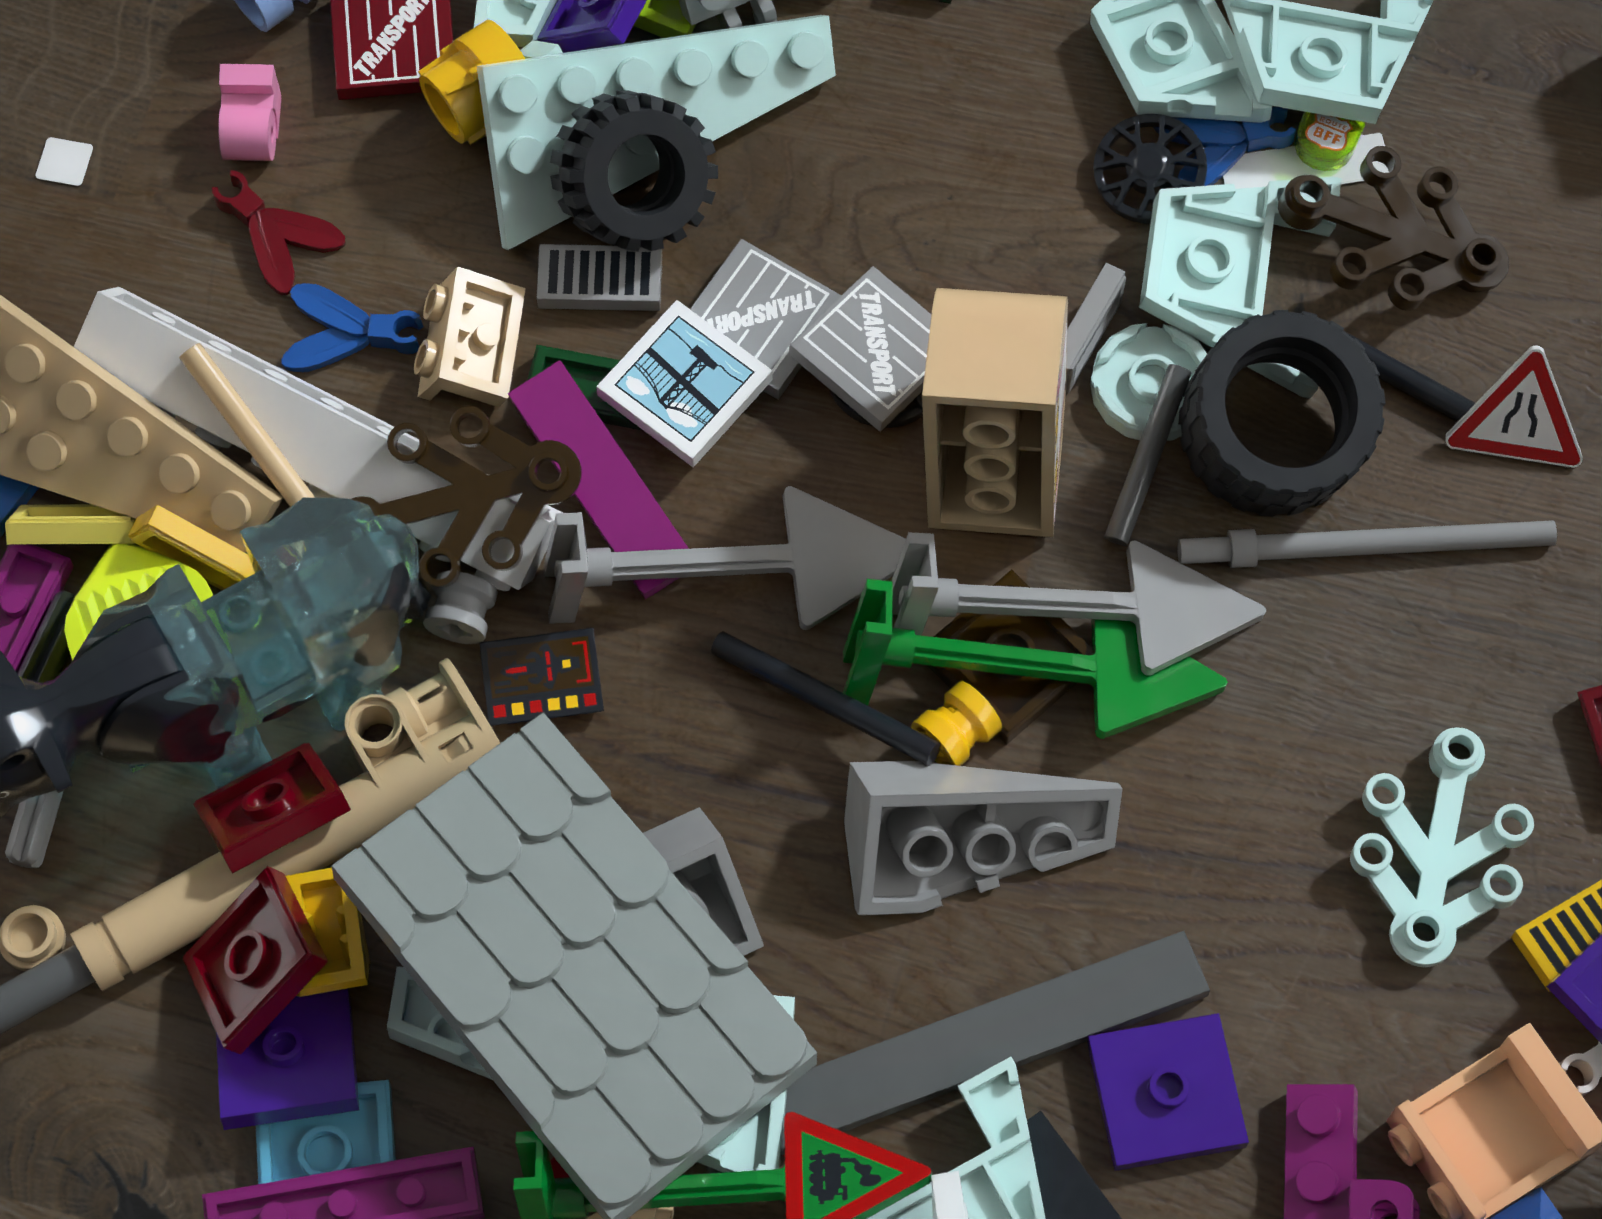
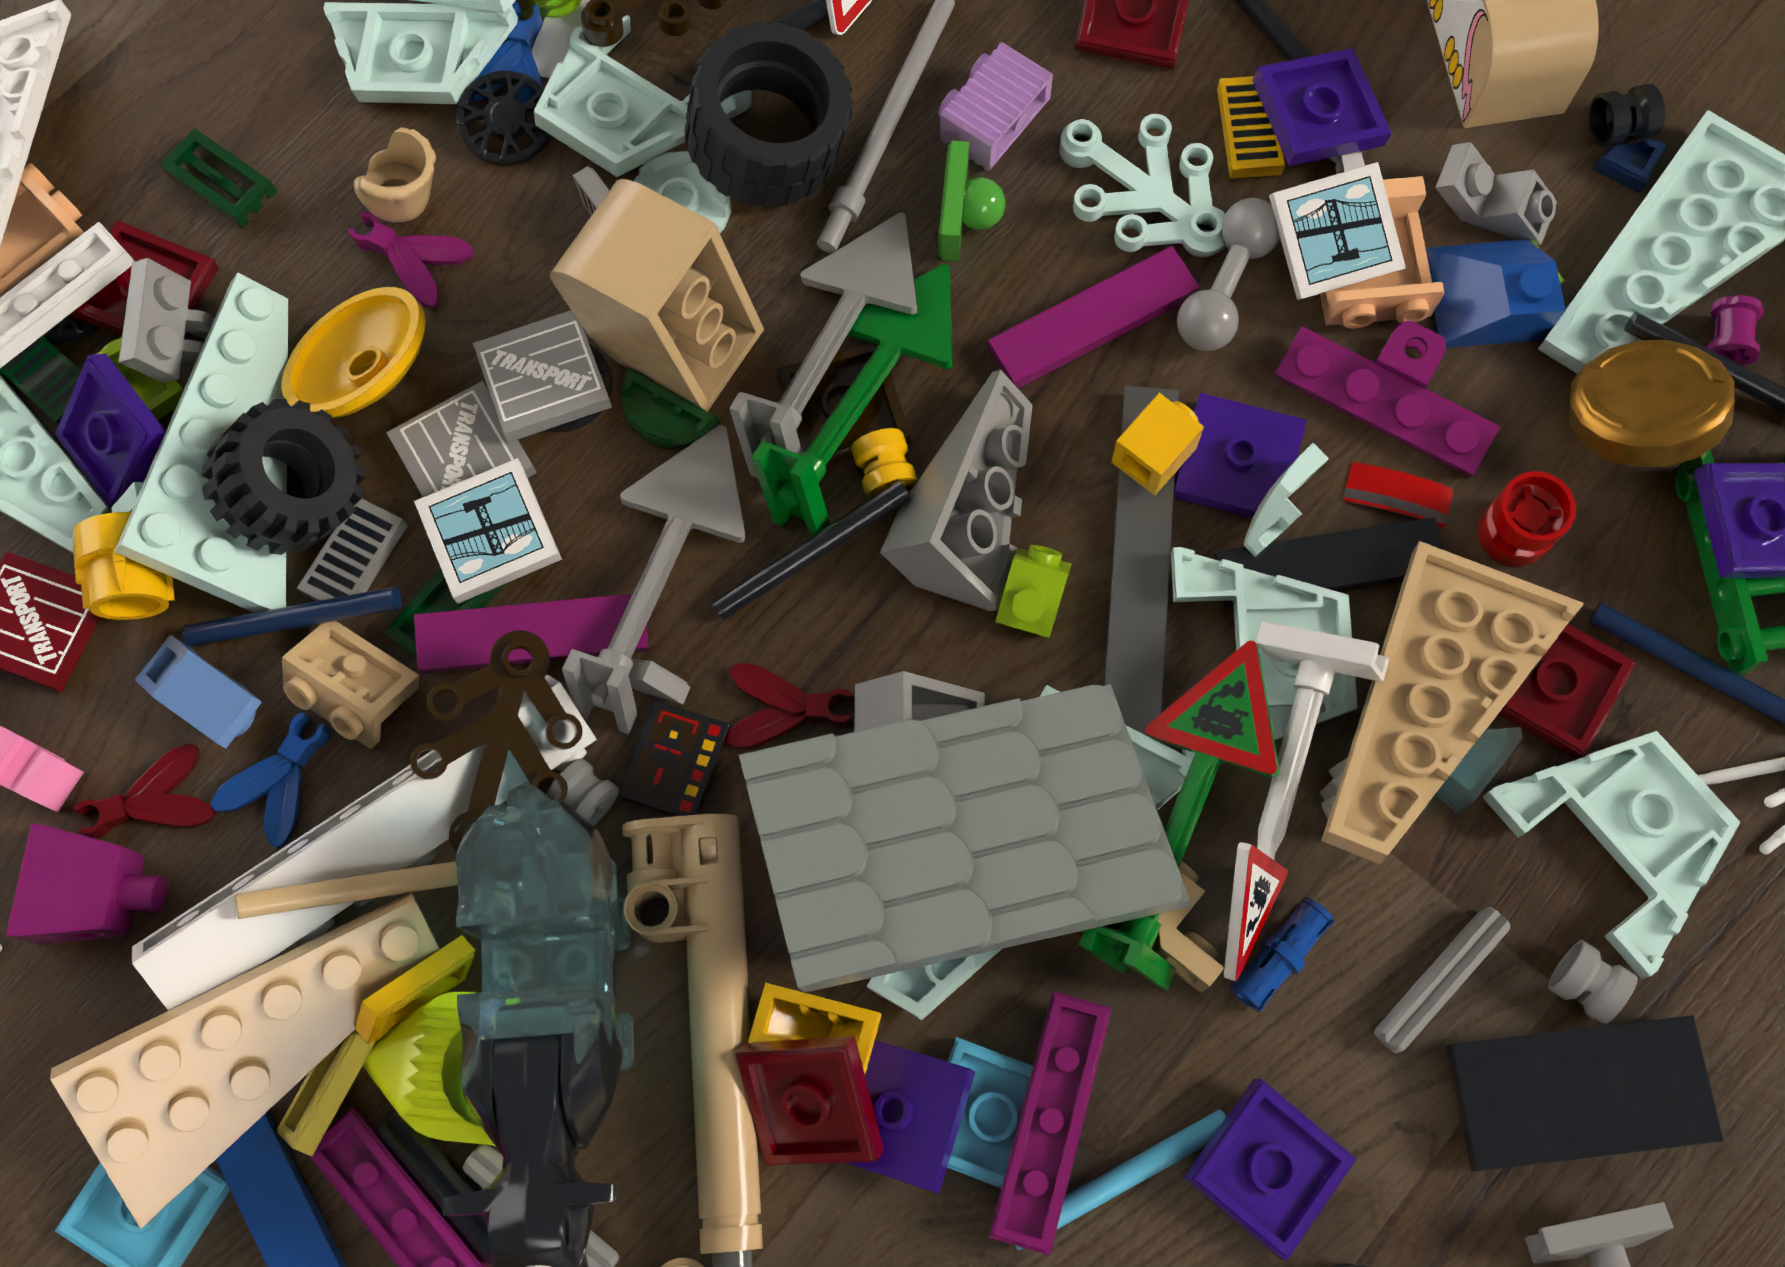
camera: 60 degrees left, 5 degrees up
(160, 217) = (79, 889): none -> magenta torso
(271, 806) = (679, 1028): dark red tile -> none
(391, 215) = (198, 692): none -> medium blue slope
(508, 256) = (292, 617): none -> dark blue bar
(612, 619) = (657, 682): none -> light grey tile
(646, 760) = (787, 707): none -> dark red piece
(801, 164) = (355, 352): none -> yellow dish
(899, 485) = (662, 415): none -> dark green tile
(899, 940) = (1034, 590): none -> lime bracket
(947, 157) = (411, 253): none -> magenta piece
(1012, 105) = (398, 178): none -> tan hair
(1103, 1146) = (1276, 510): none -> light aqua slope
(1119, 984) = (1157, 443): none -> yellow brick
(1147, 455) = (739, 228): dark grey bar -> none
(1251, 864) = (1093, 317): none -> magenta tile
(1307, 662) = (973, 202): none -> bright green tile
(1310, 981) = (1209, 316): none -> light grey piece
(1444, 640) = (994, 104): none -> lavender brick
(1484, 1069) = (1337, 231): none -> tile

